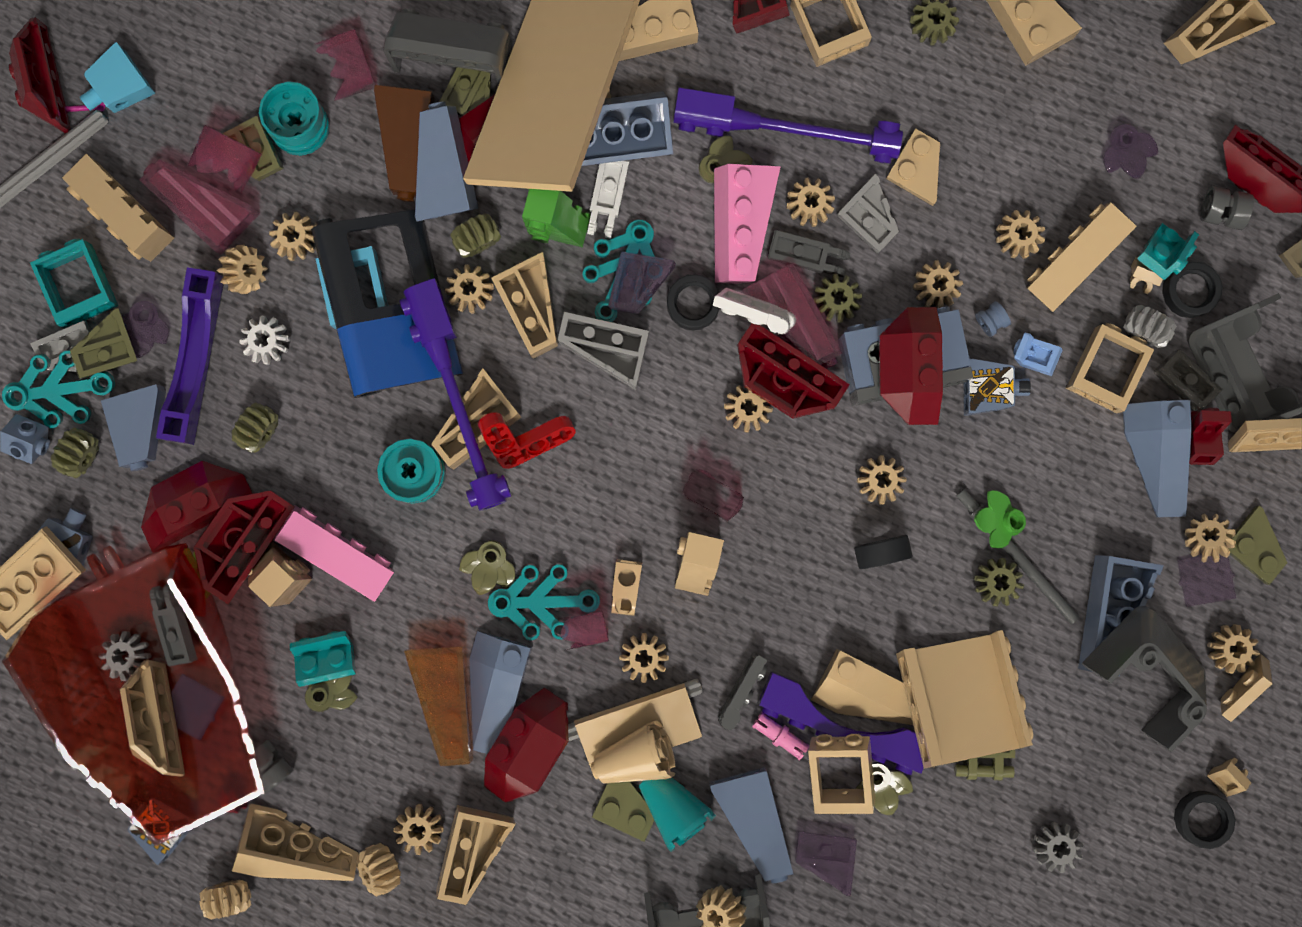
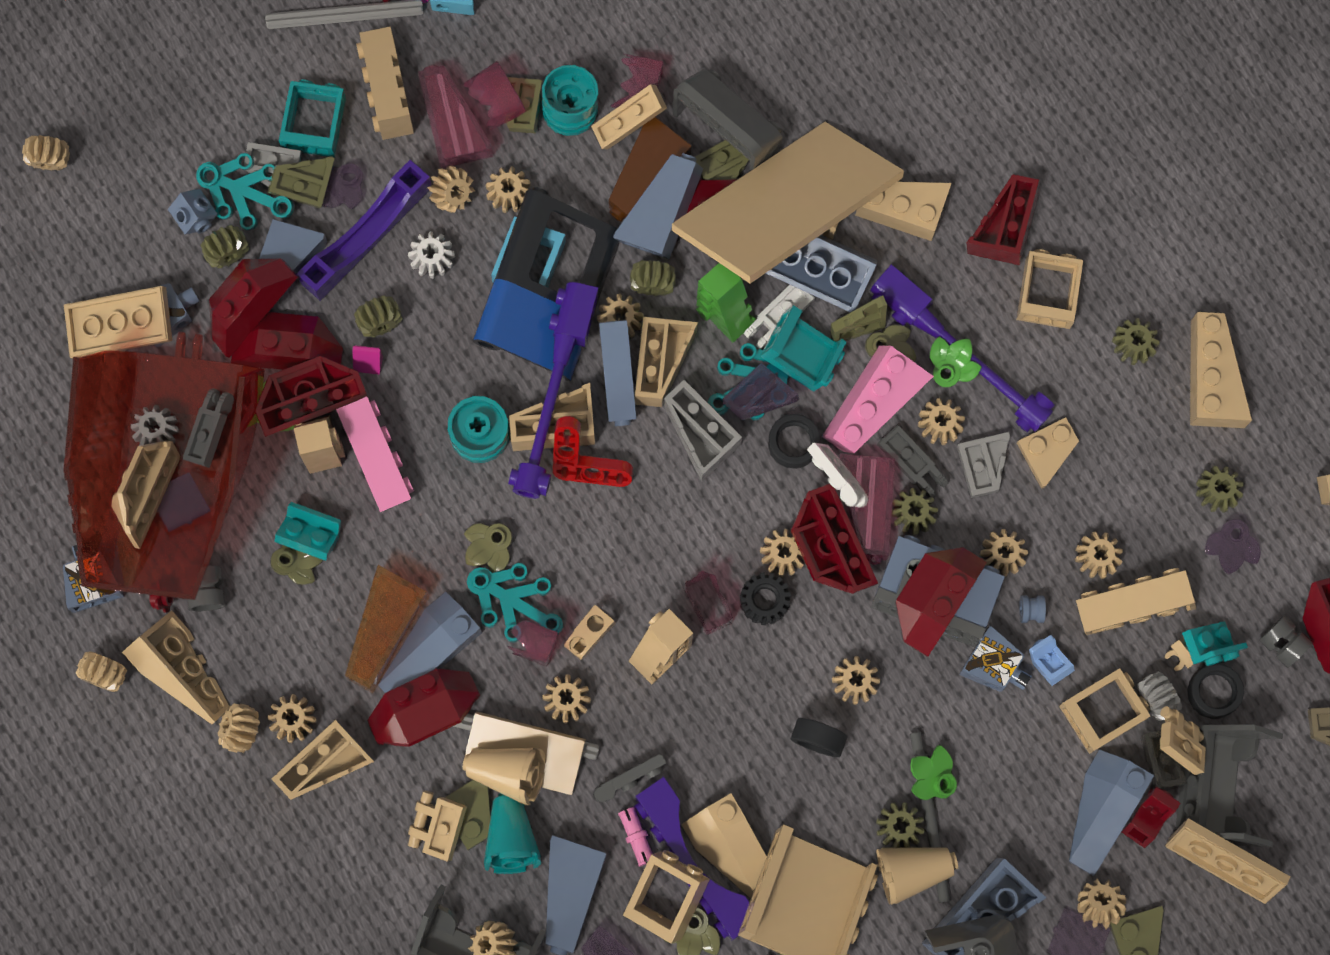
camera: 30 degrees right, 10 degrees down
(127, 488) = (246, 299): none -> dark red wedge
(271, 471) = (367, 359): none -> dark pink slope
(358, 100) = (629, 117): none -> tan plate
(500, 341) = (617, 372): none -> sand blue slope
(613, 839) = (443, 829): none -> tan plate
(650, 216) = (803, 351): none -> teal panel
(684, 157) = (861, 321): none -> olive wing
(775, 454) = (771, 583): none -> black tyre
(787, 138) = (954, 357): none -> bright green plate
(1036, 614) = (913, 870): none -> tan cone
(1097, 102) = (1225, 498): none -> olive gear
(1198, 356) = (1182, 741): none -> tan plate

